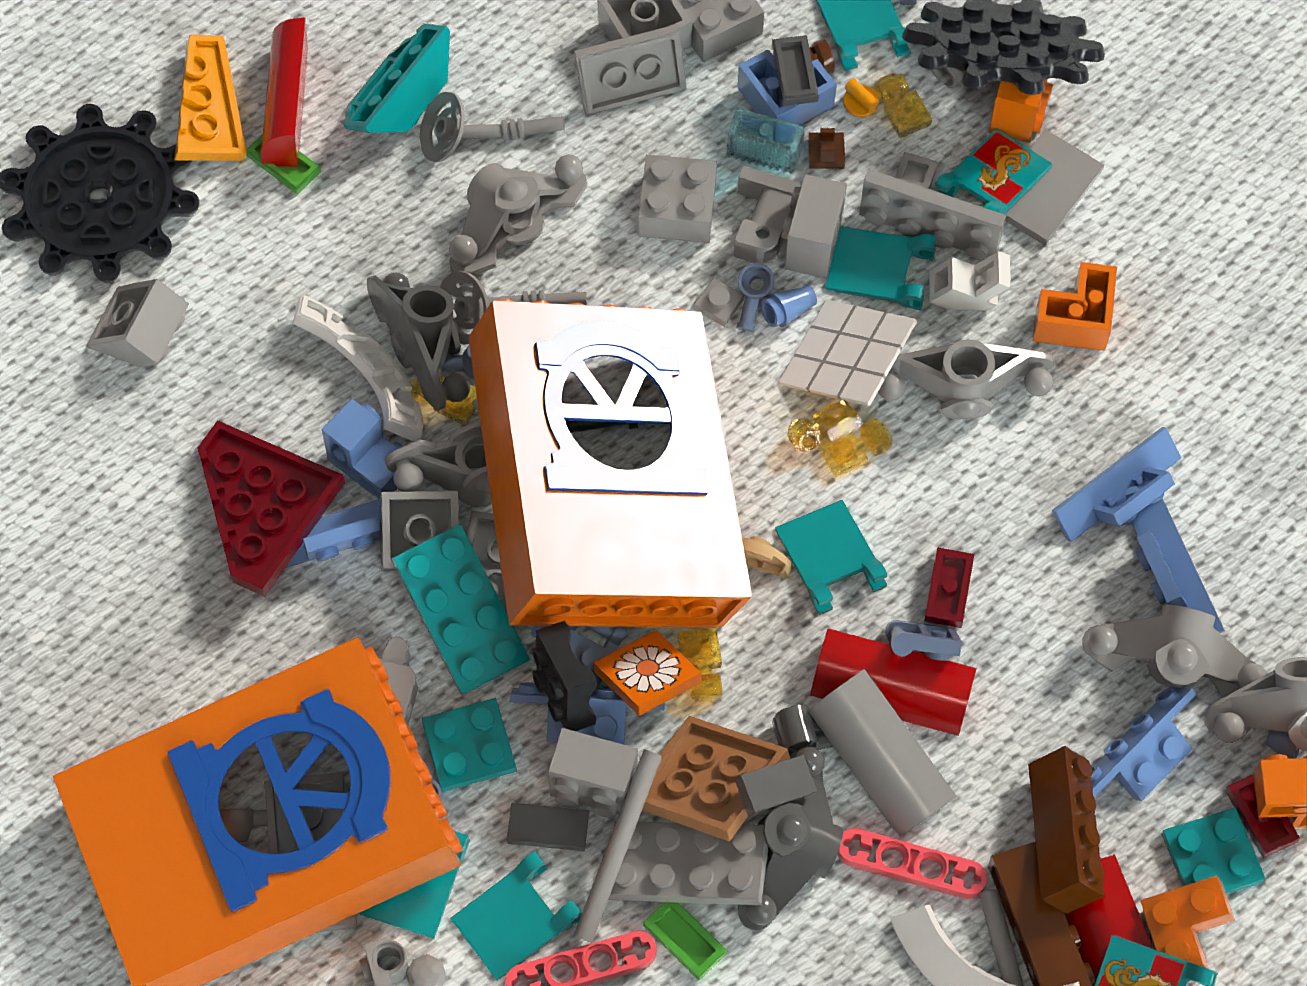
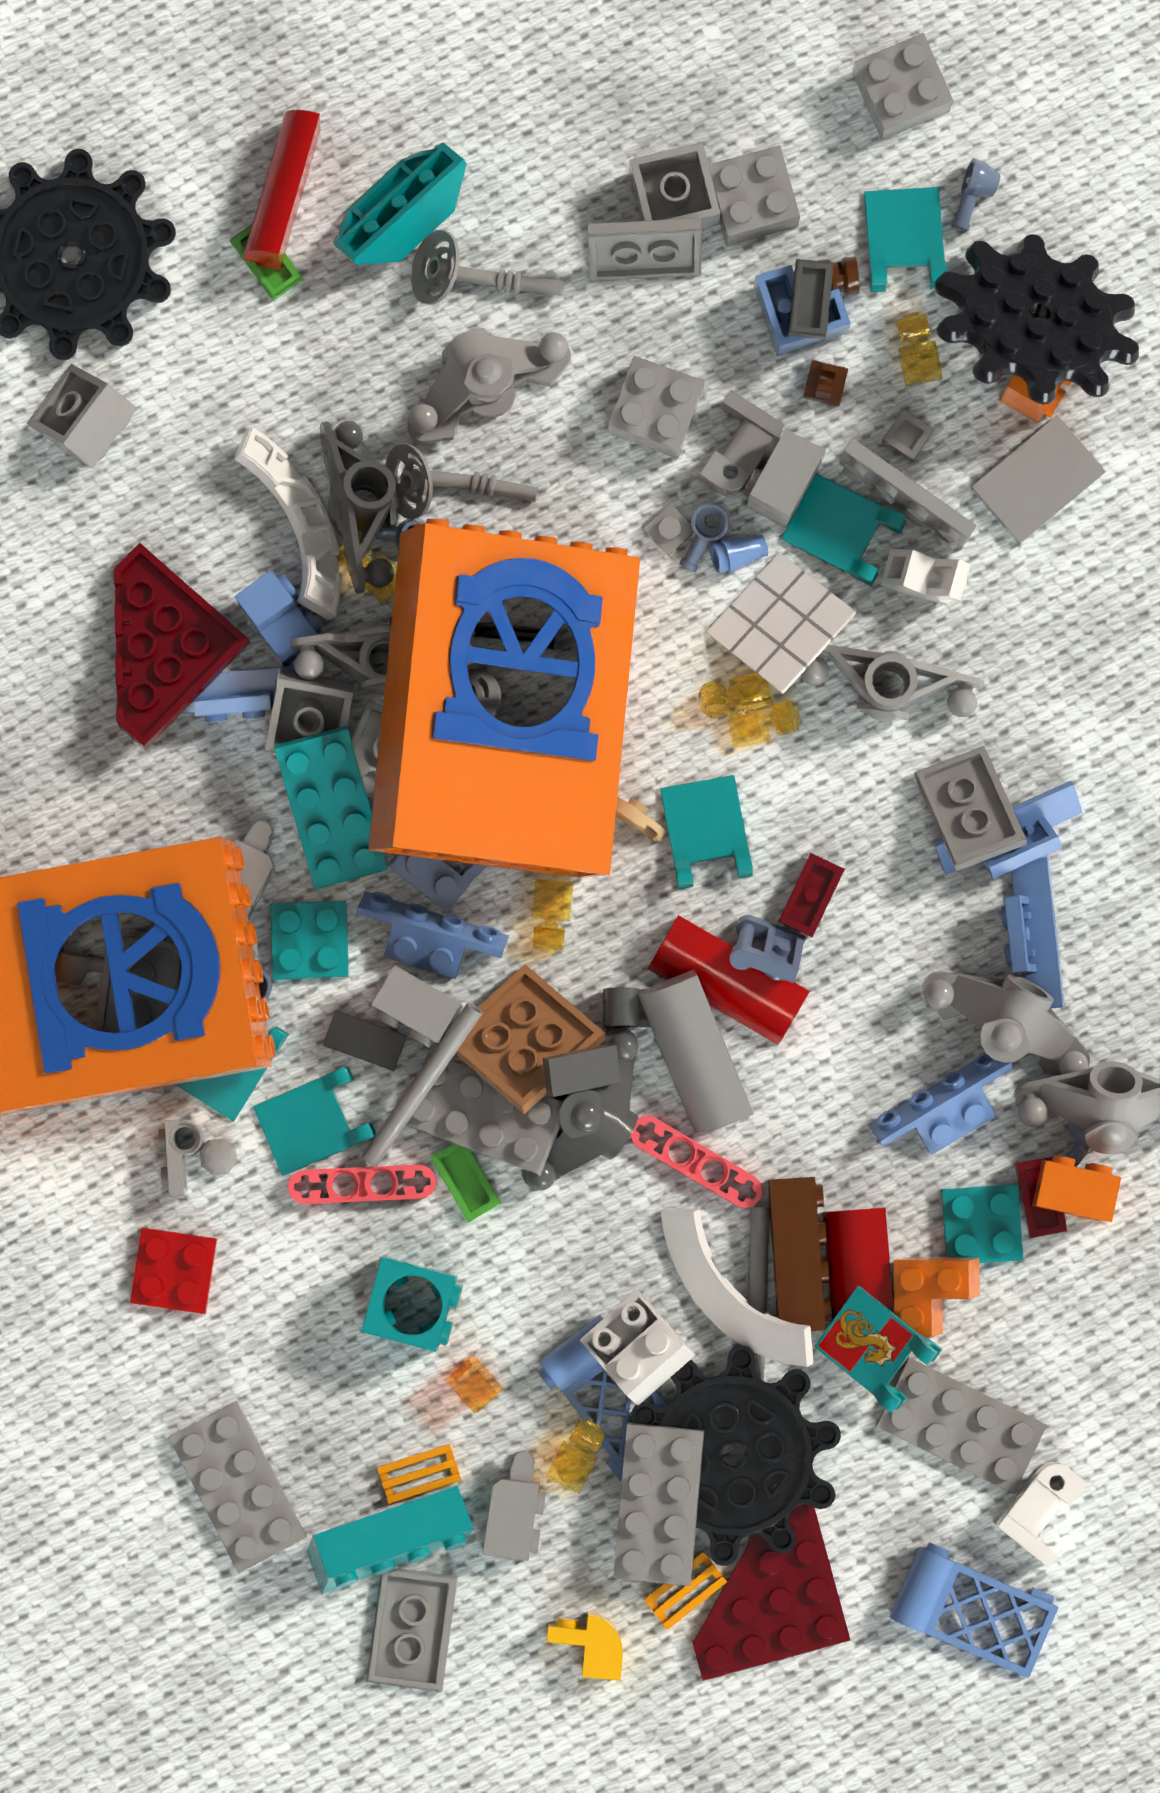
camera: 15 degrees right, 20 degrees up
(208, 105) = (201, 186): light orange wing -> none
(563, 678) = (409, 927): black brick -> none
(647, 672) = (494, 917): tile -> none
(765, 140) = (762, 363): clear light blue brick -> none
(860, 99) = (876, 333): light orange plate -> none
(996, 172) = (990, 457): flag -> none
(1066, 830) = (845, 1174): reddish brown brick -> none
(1076, 471) = (970, 808): none -> light grey tile
(1079, 317) = (1028, 643): orange brick -> none

